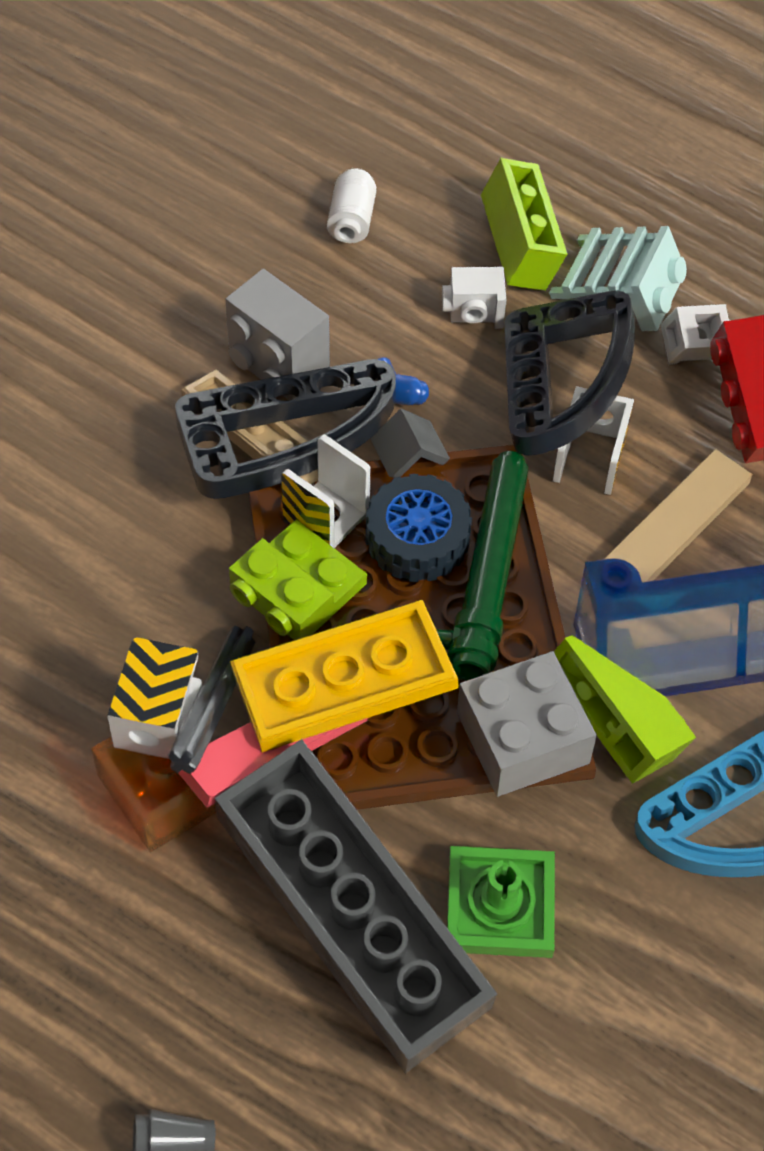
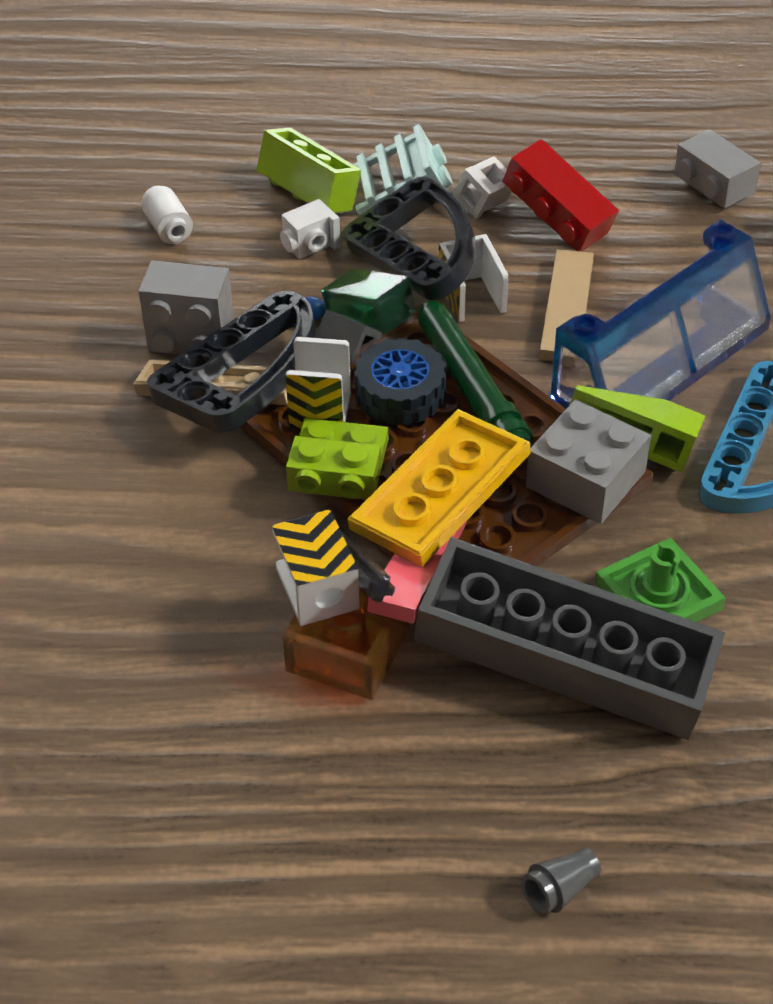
camera: 30 degrees left, 10 degrees down
(465, 415) = (371, 298): none -> clear green brick

